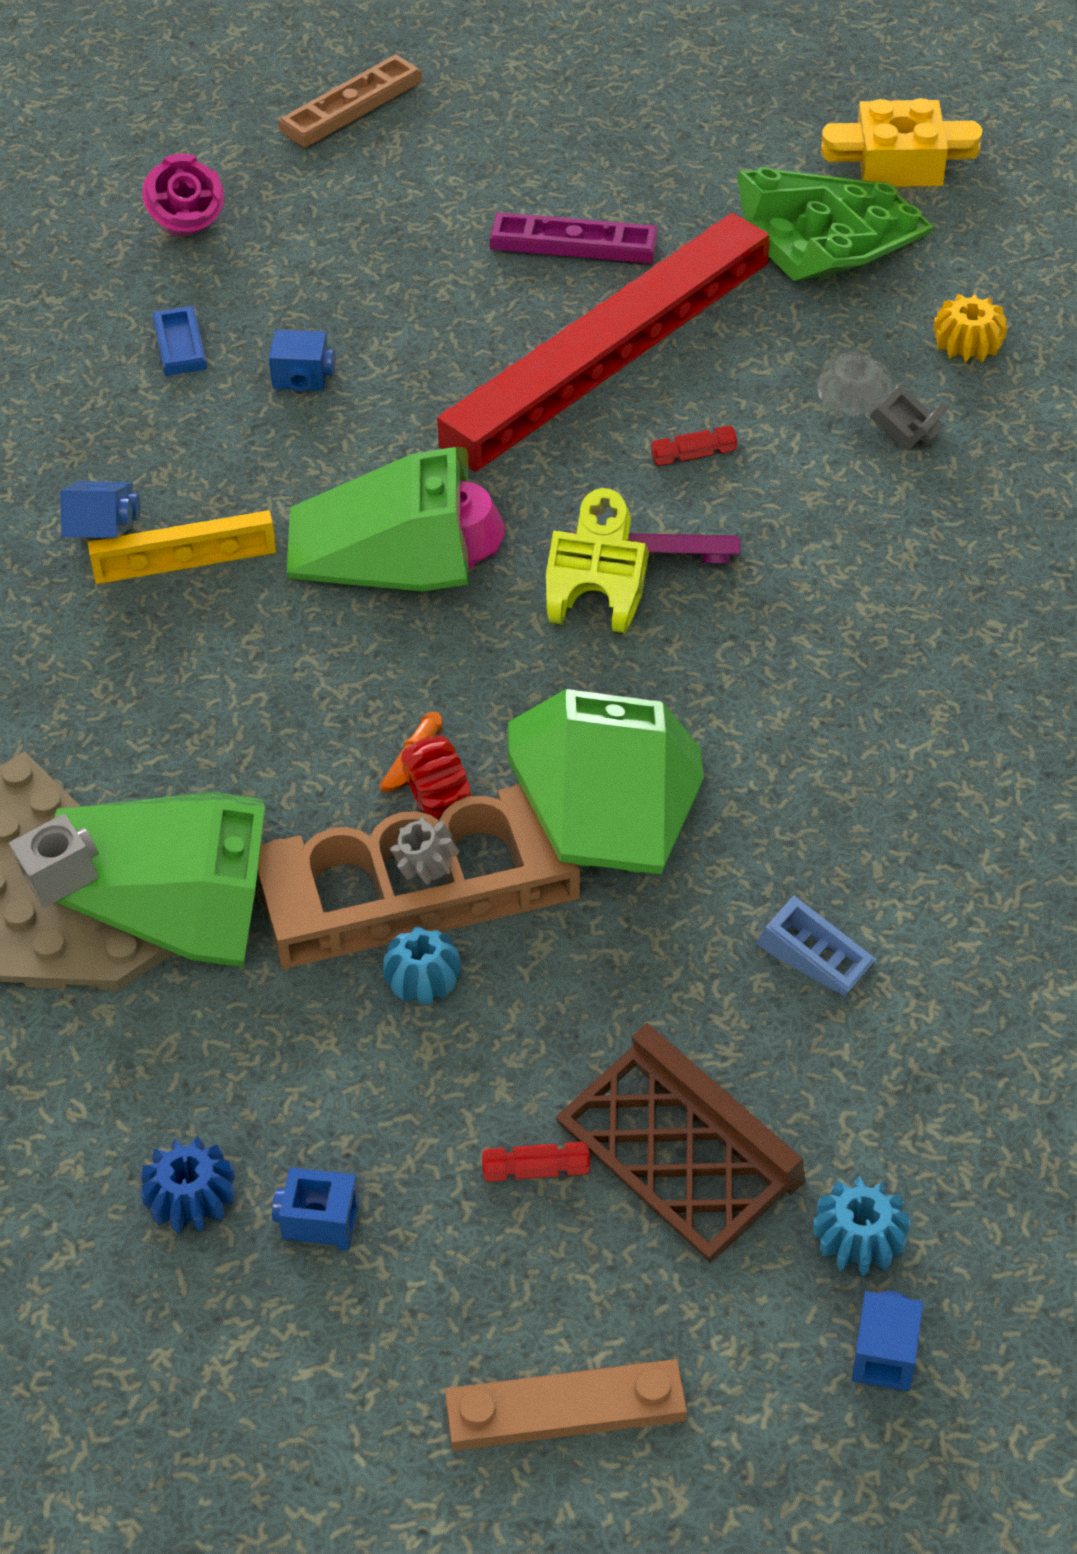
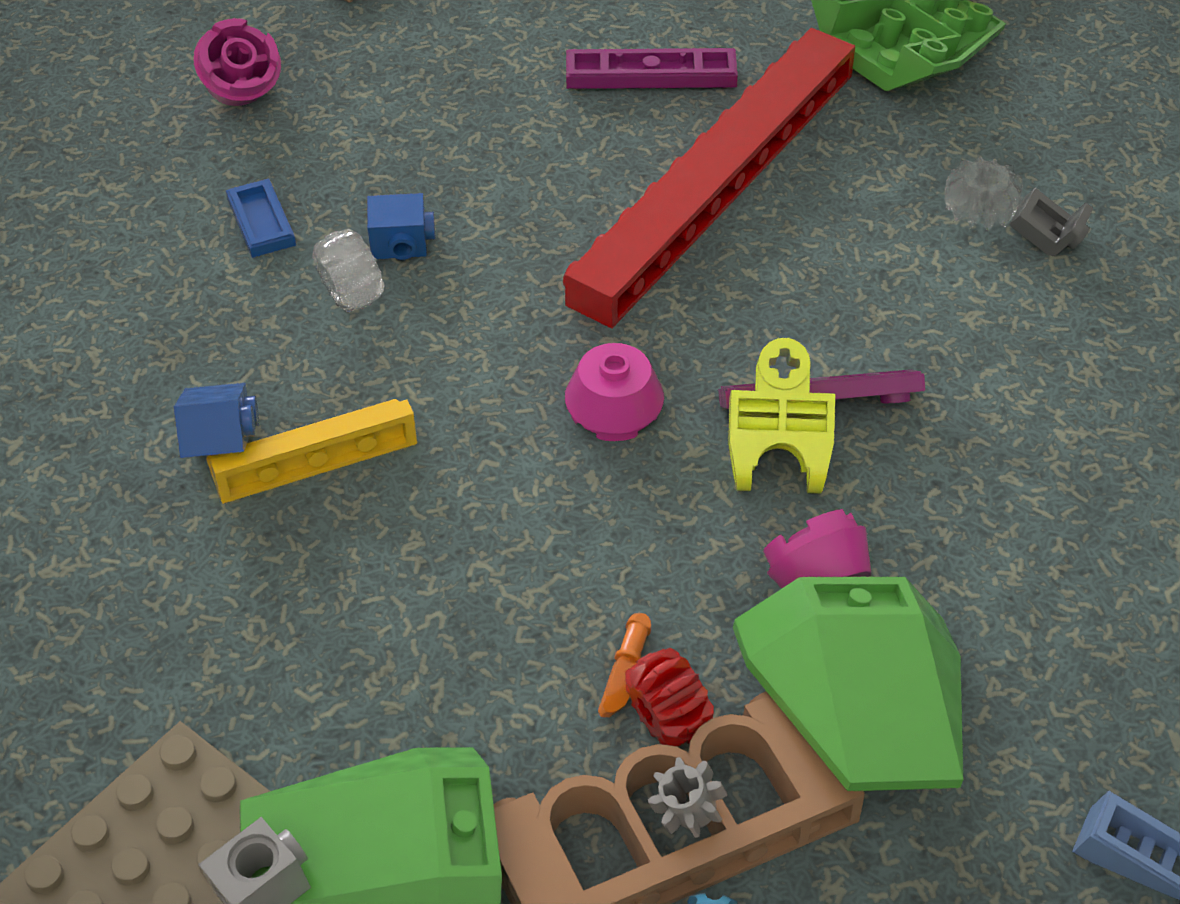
camera: 10 degrees left, 0 degrees up
(244, 394) = (348, 270): none -> clear gear
(386, 527) = (538, 405): bright green wedge -> none
(602, 670) = (826, 548): none -> dark pink cone
(693, 445) = (835, 275): red axle -> none
(970, 327) = (1080, 122): yellow gear -> none

